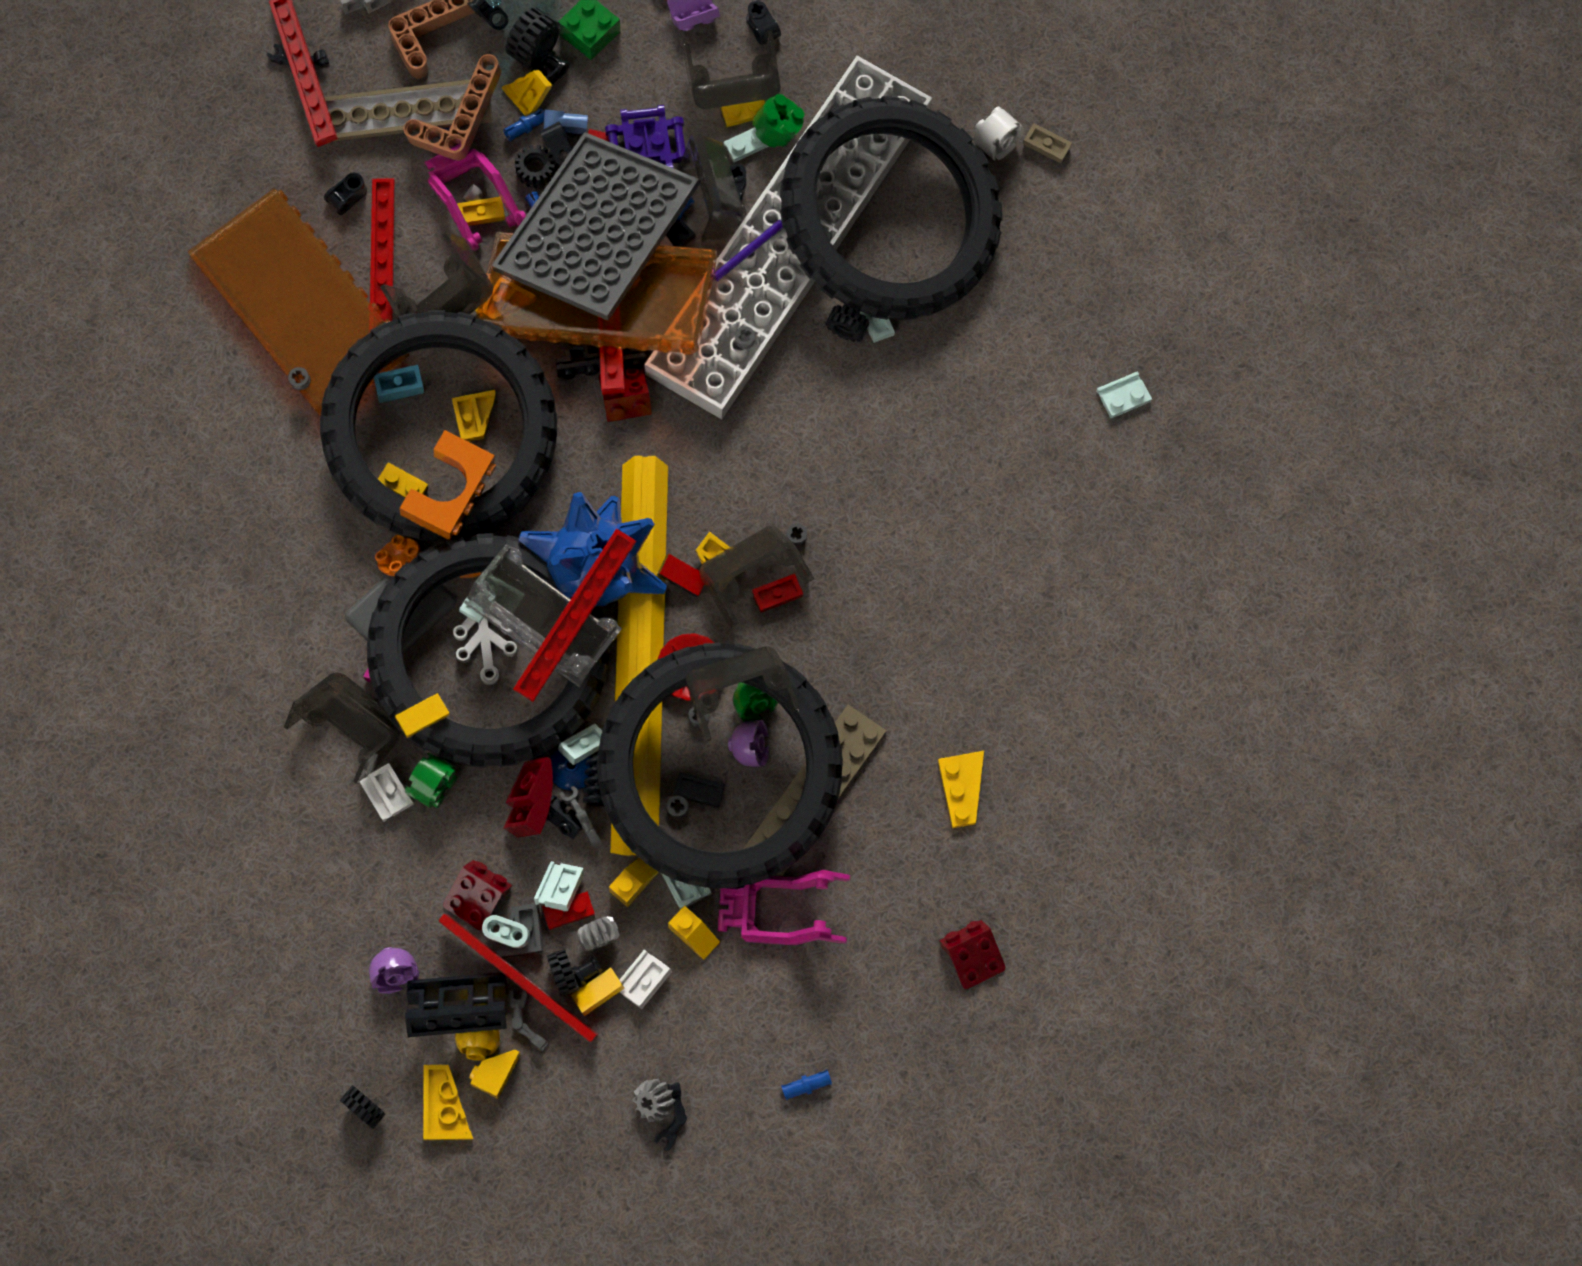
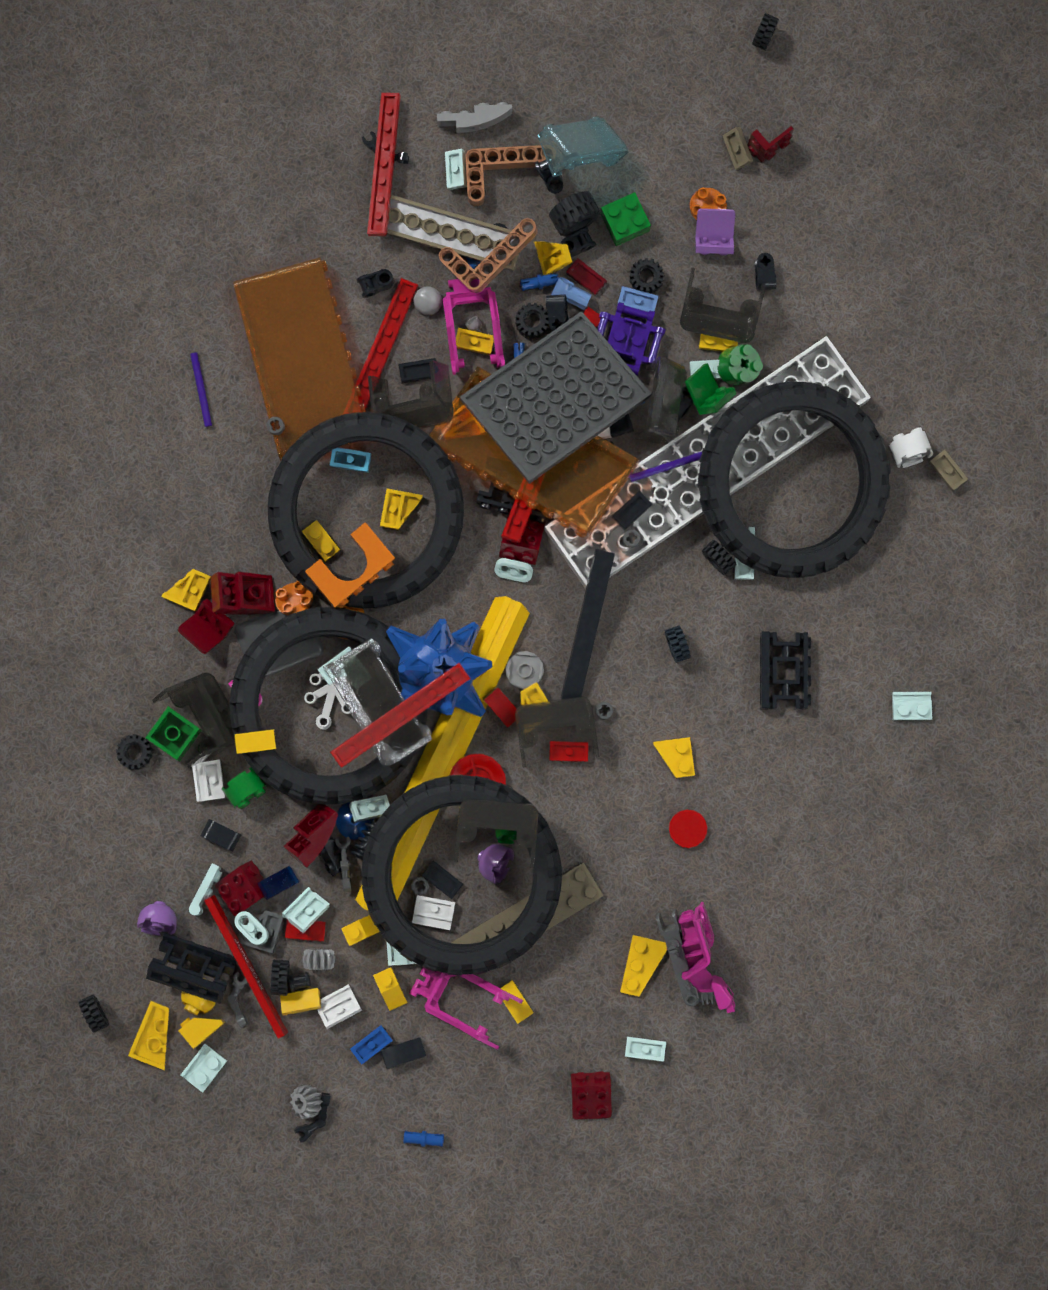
camera: 25 degrees right, 10 degrees up
(198, 379) = (201, 389): none -> dark purple bar
(275, 596) = (189, 590): none -> yellow wing
(277, 786) = (124, 746): none -> black tyre
(313, 623) = (206, 628): none -> dark red bracket
(324, 755) = (173, 734): none -> green brick
(337, 572) = (242, 593): none -> dark red slope
(383, 47) = (455, 169): none -> light aqua plate
(411, 190) = (427, 300): none -> light grey hair
(425, 846) = (220, 835): none -> black beam
(430, 266) = (415, 370): none -> black tile
(433, 913) = (205, 891): none -> light aqua plate
(514, 869) = (278, 882): none -> clear blue tile
(518, 1116) = (203, 1068): none -> light aqua plate
(573, 101) = (586, 277): none -> dark red tile
(630, 429) = (514, 570): none -> light aqua plate
(637, 86) = (646, 265): none -> black tyre
(639, 100) = (638, 299): none -> medium blue plate
(696, 527) = (529, 672): none -> light grey tile
(700, 1005) = (371, 1044): none -> blue plate
(706, 828) = (433, 912): none -> white plate
(732, 309) = (631, 510): none -> black tile
(737, 446) = (587, 624): none -> black tile
(740, 998) = (403, 1053): none -> black slope
(754, 162) = (706, 393): none -> green bracket
(844, 429) = (677, 644): none -> black bush
(845, 892) = (517, 1010): none -> yellow tile
(898, 549) = (677, 756): none -> yellow wing
(945, 621) = (687, 828): none -> red tile
(955, 420) = (771, 670): none -> black fence
(1009, 876) = (645, 1049): none -> light aqua plate
(1014, 748) = (689, 950): none -> dark pink piece

